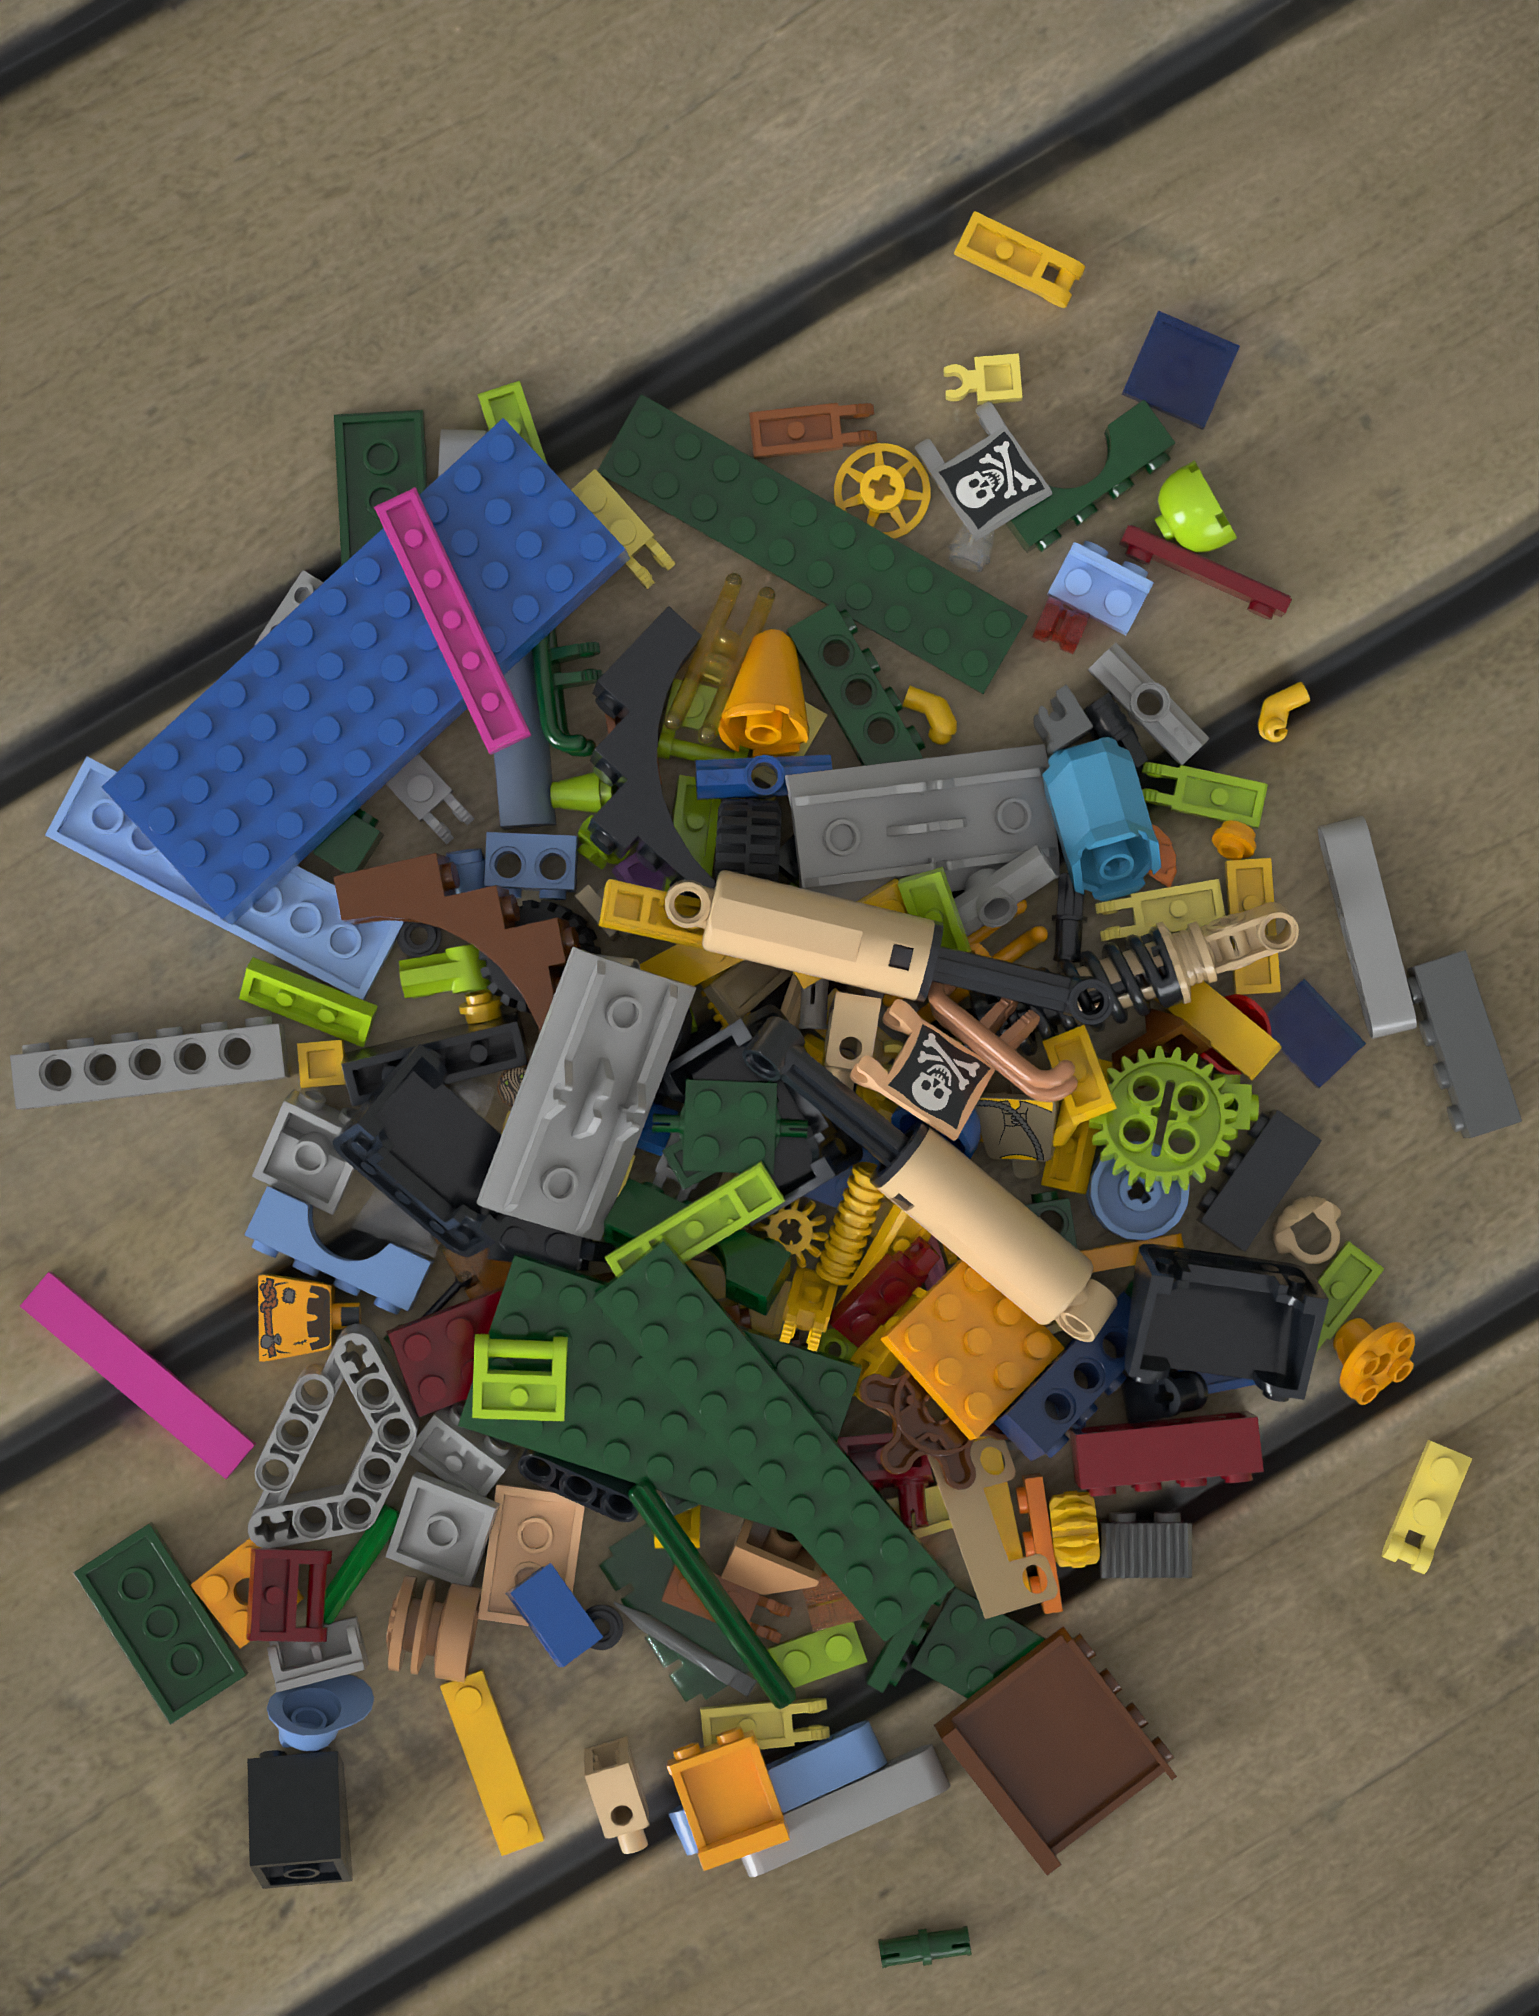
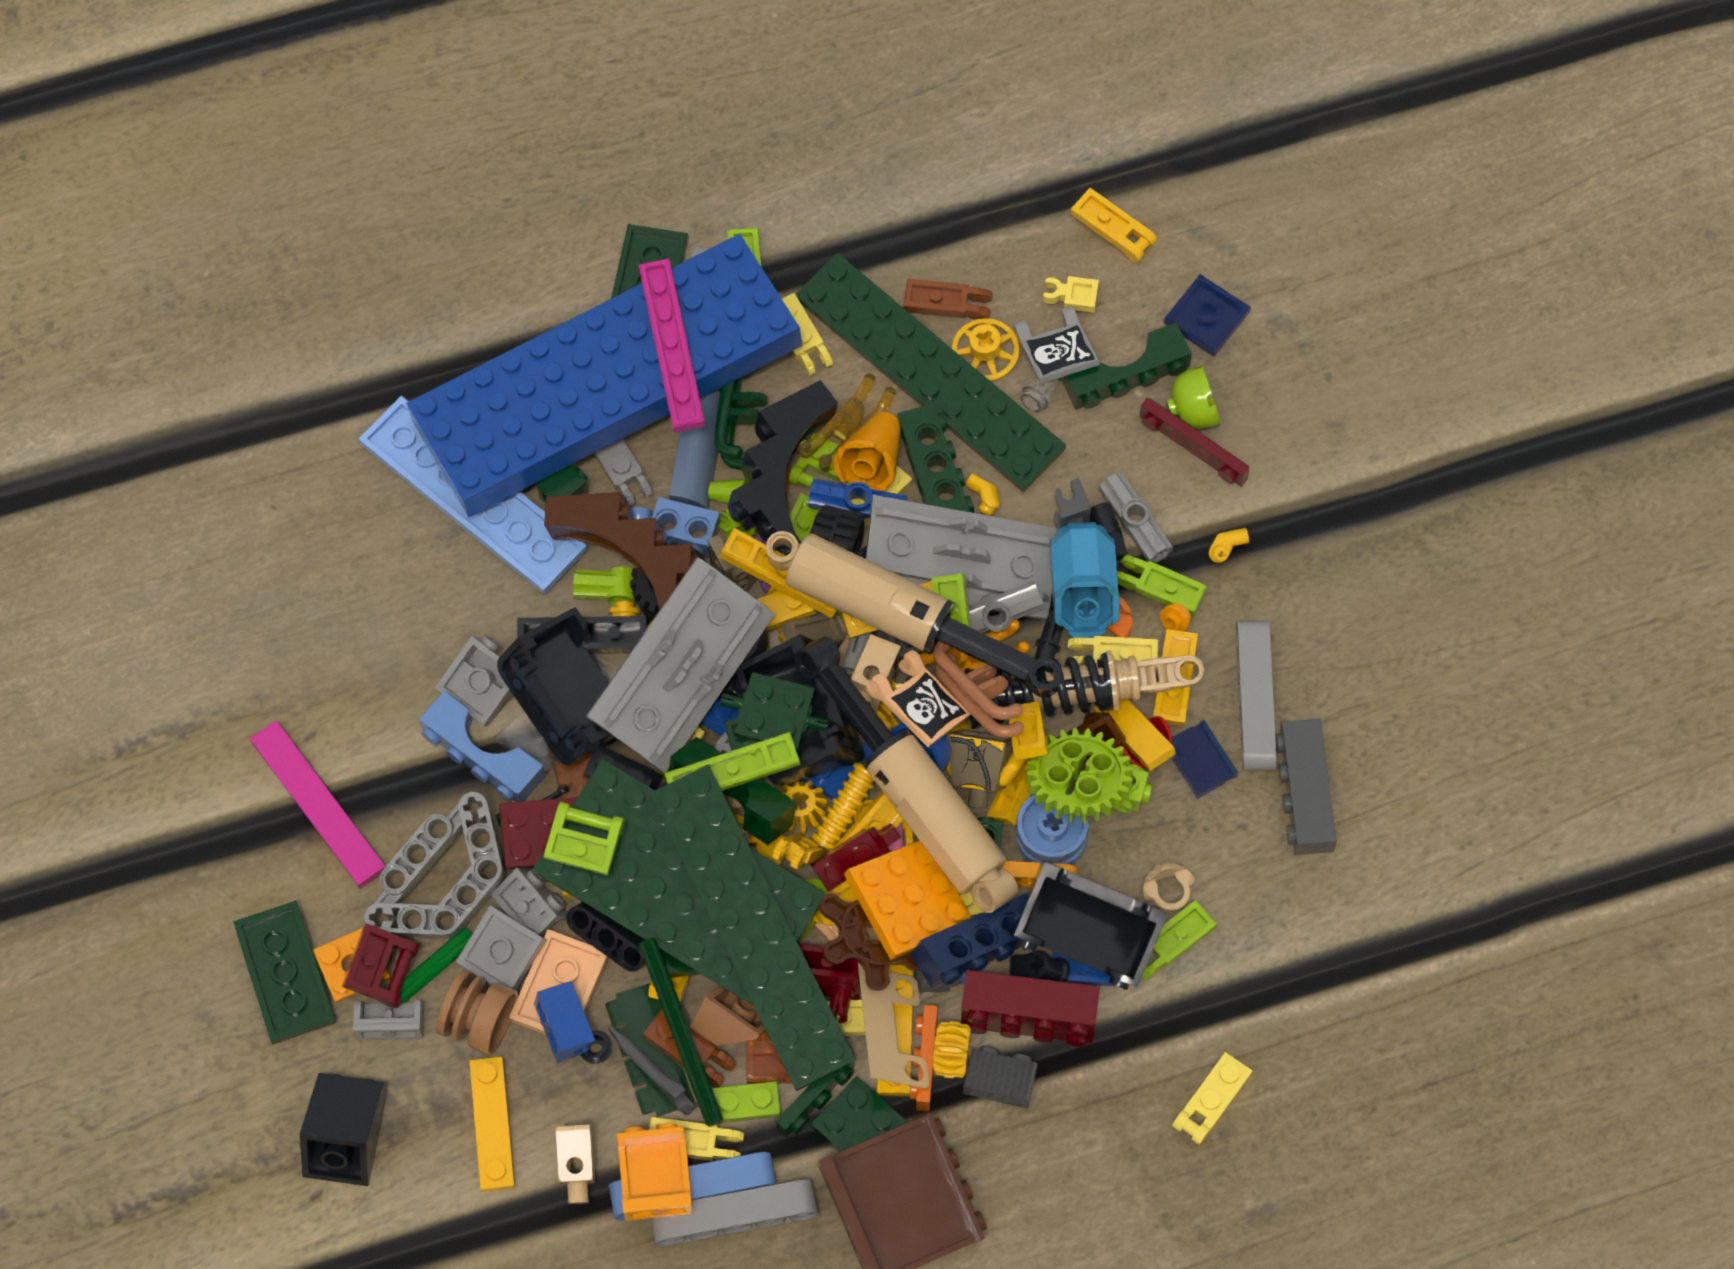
camera: 15 degrees right, 20 degrees down
(36, 1089) = (463, 618): light grey brick -> none
(299, 1316) = (438, 785): torso -> none
(308, 1002) = (505, 583): lime plate -> none
(315, 1712) = (376, 1056): medium blue piece -> none
(321, 1063) = (503, 625): yellow plate -> none
(413, 950) = (594, 551): black plate -> none
(1070, 629) = (1086, 455): clear red wheel -> none
(1101, 586) = (1121, 438): light blue bracket -> none
(1257, 1178) = (1139, 844): black brick -> none
(1372, 1357) = (1196, 981): light orange plate -> none

